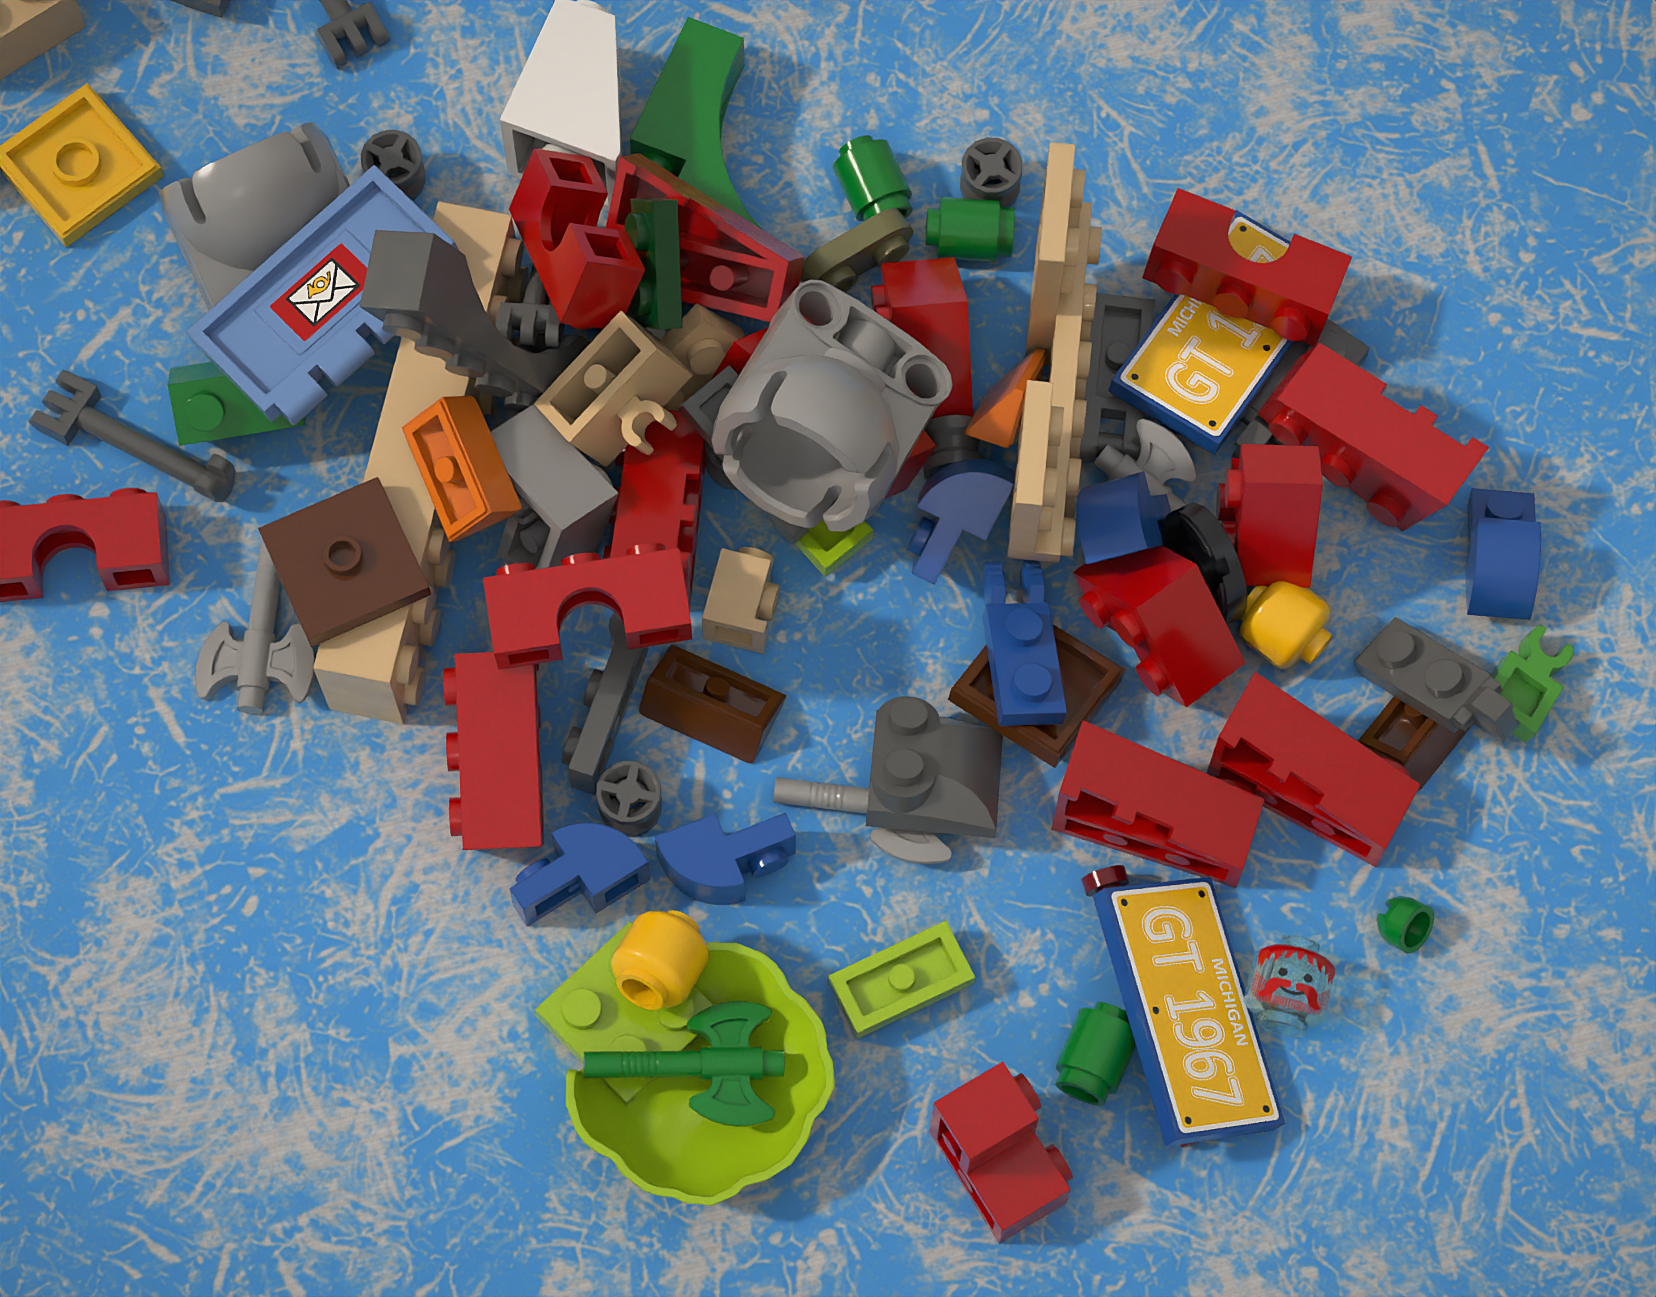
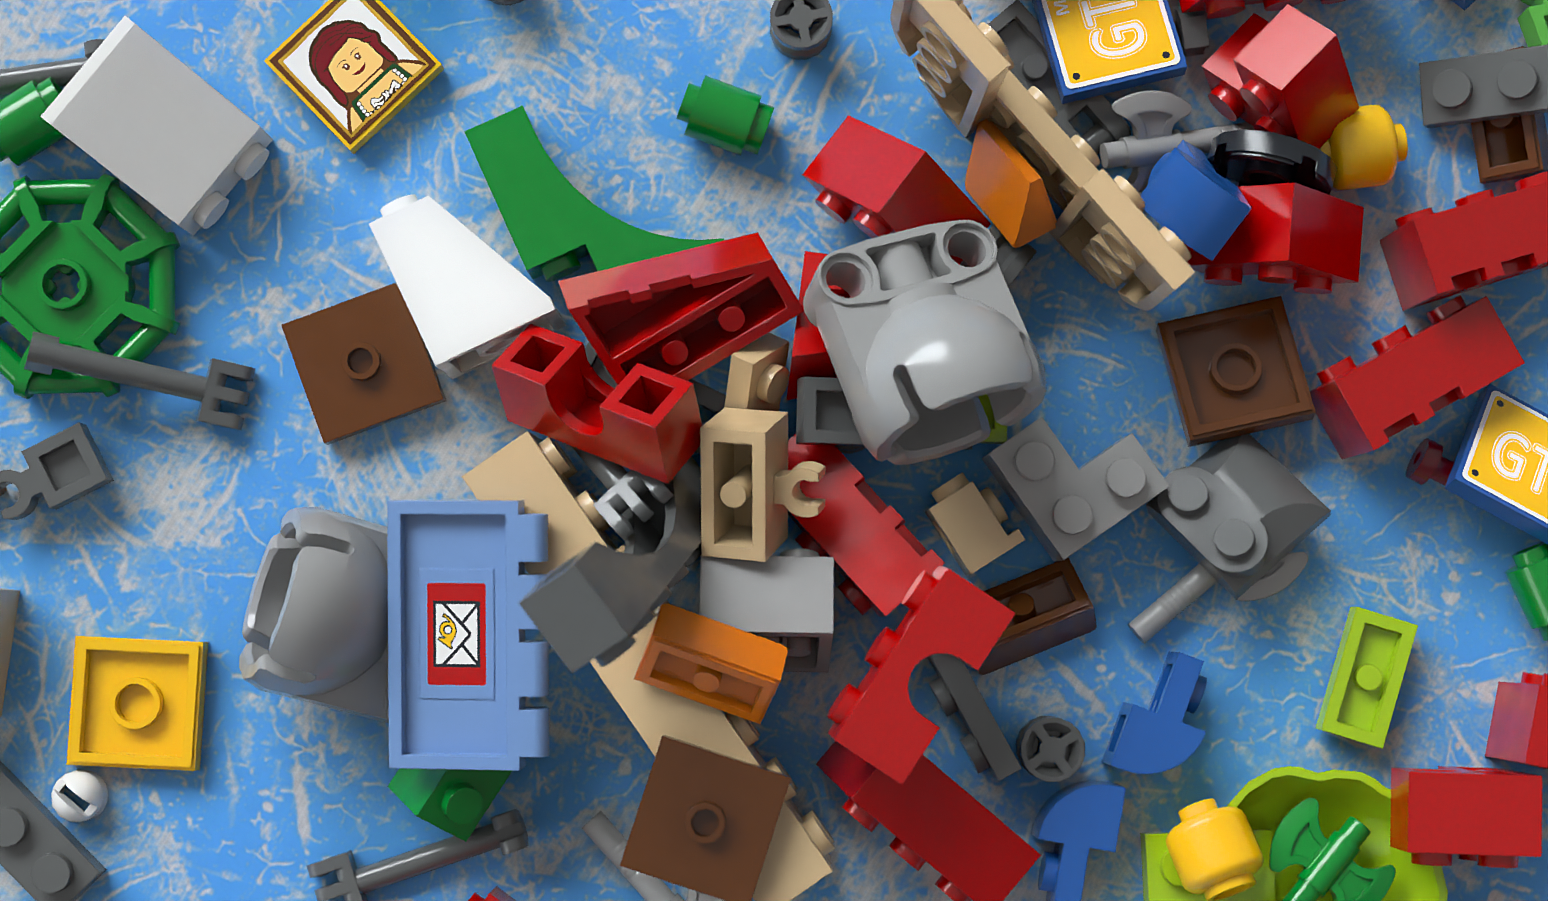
camera: 50 degrees left, 15 degrees up
(393, 152) = (356, 459): dark grey wheel -> none
(456, 103) = (363, 363): none -> reddish brown plate
(655, 236) = (667, 346): dark green plate -> none
(828, 653) = (1070, 503): none -> light grey brick
(864, 1112) = (1466, 812): none -> red brick
(869, 244) = (780, 157): olive plate -> none
(961, 497) = (1055, 299): blue brick -> none
(970, 229) = (832, 80): green brick -> none
(1022, 649) = (1209, 362): blue hinge -> none

